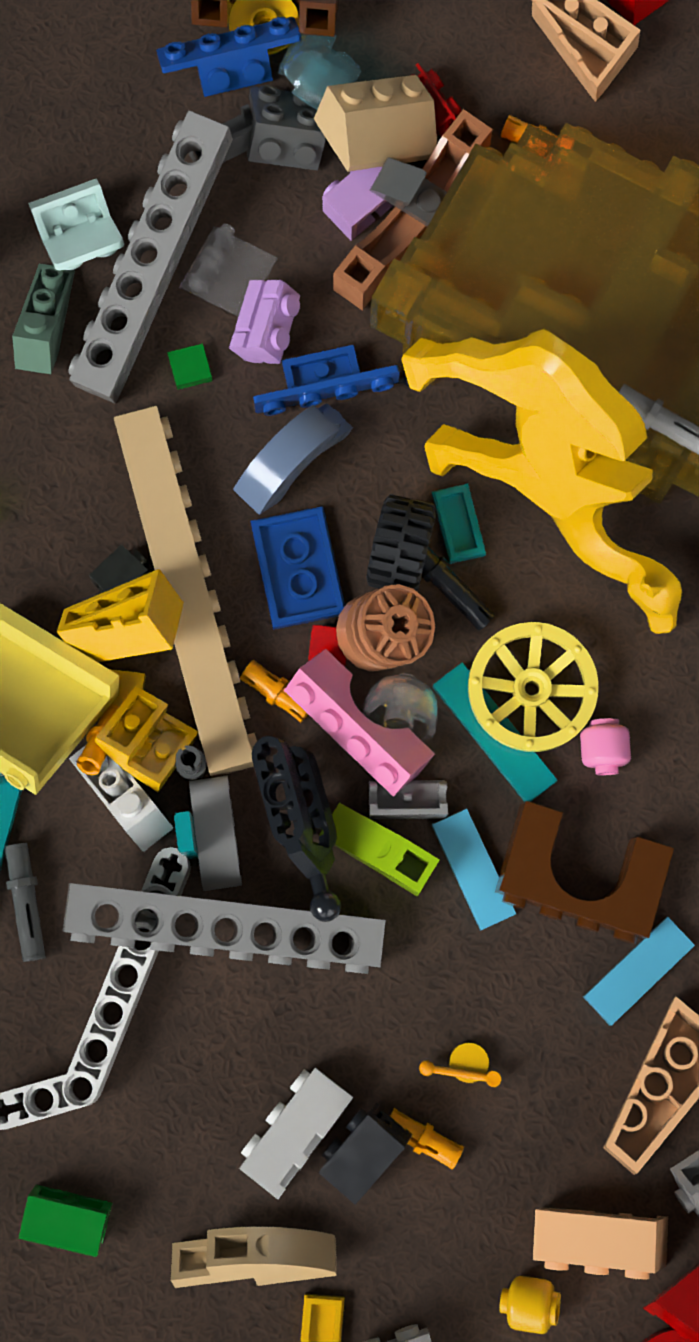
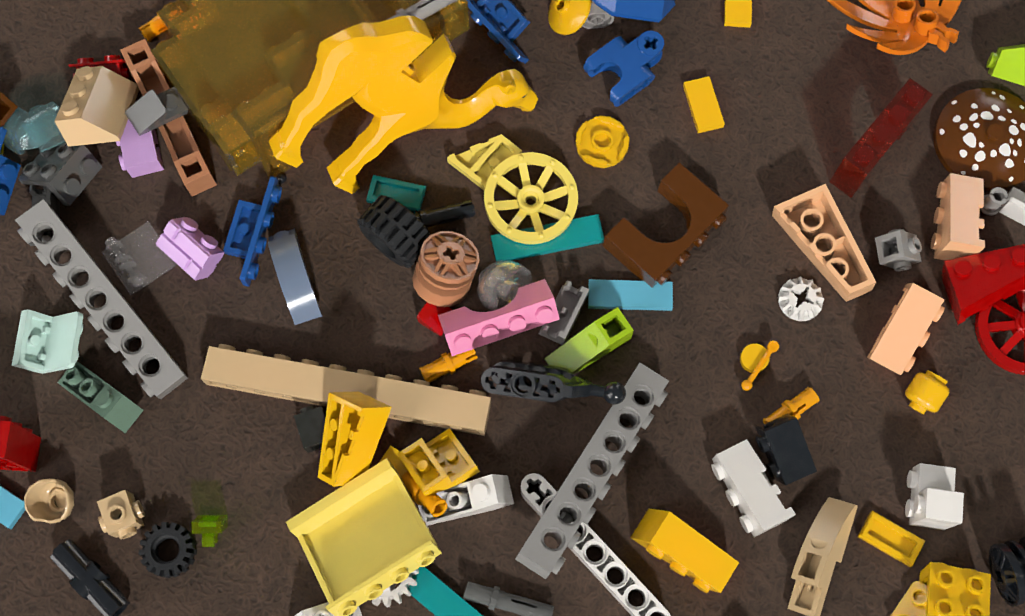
camera: 60 degrees left, 5 degrees down
(179, 1084) = (685, 550): none -> yellow wedge
(186, 834) = (519, 464): teal tile -> none
(190, 366) = (191, 314): green tile -> none
(195, 755) = (468, 433): dark grey pin -> none
(215, 833) = (525, 447): light grey beam -> none
(298, 567) = (370, 310): blue tile -> none
(558, 605) = (483, 158): none -> light yellow wing
(563, 1100) = (788, 300): none -> white gear
(605, 746) = (591, 173): bright pink head -> none
(638, 971) = (745, 226): medium azure tile -> none
(651, 748) = (601, 149): none -> yellow tile

